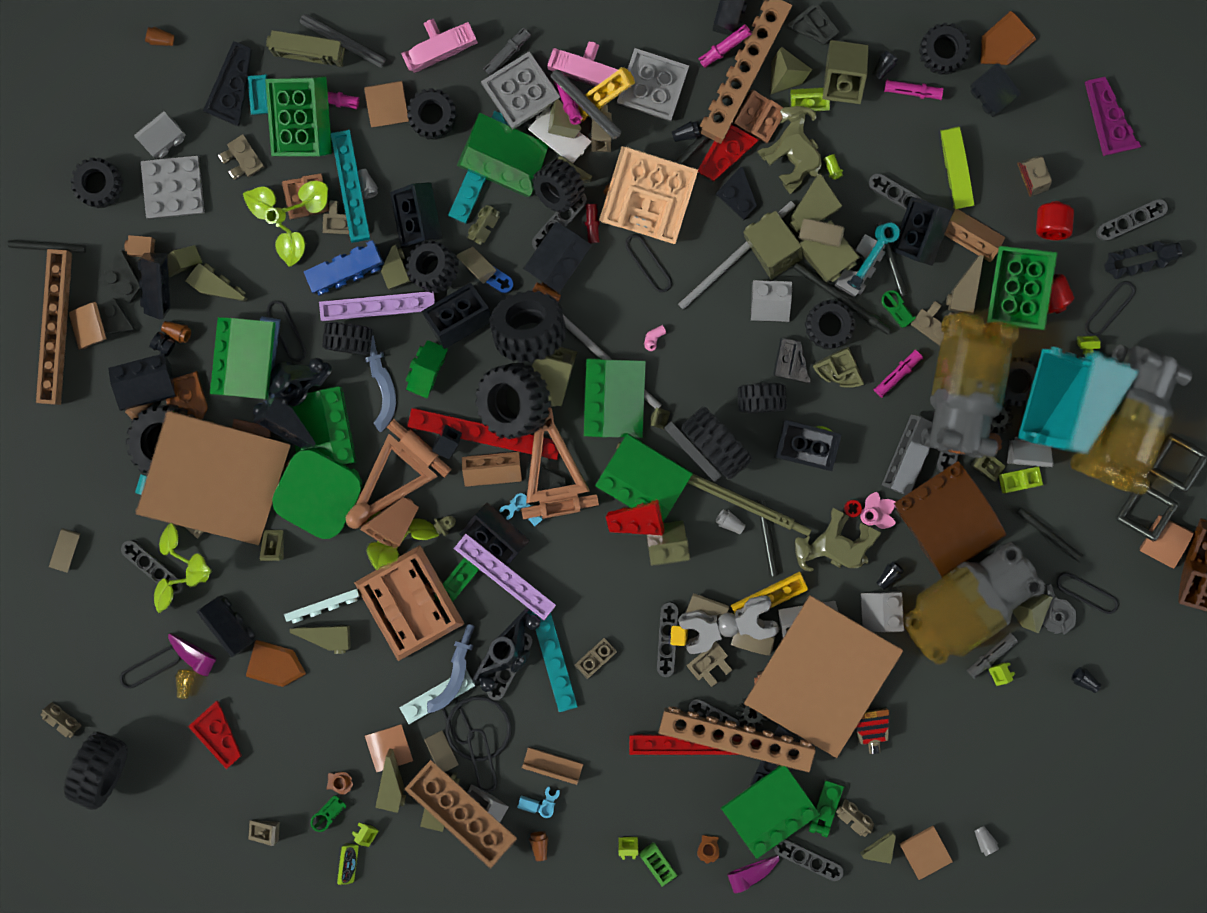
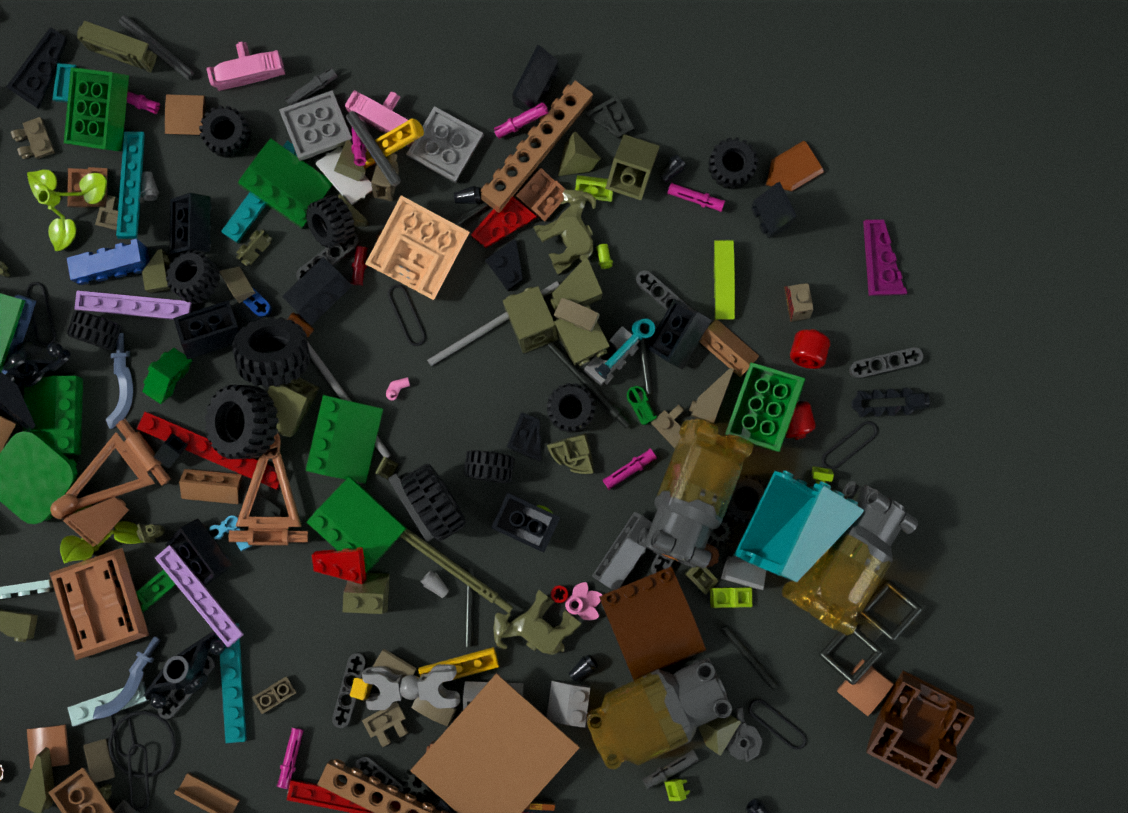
camera: 10 degrees right, 5 degrees down
(624, 714) = (287, 767): none -> dark pink pin
(771, 301) = (518, 373): light grey slope -> none

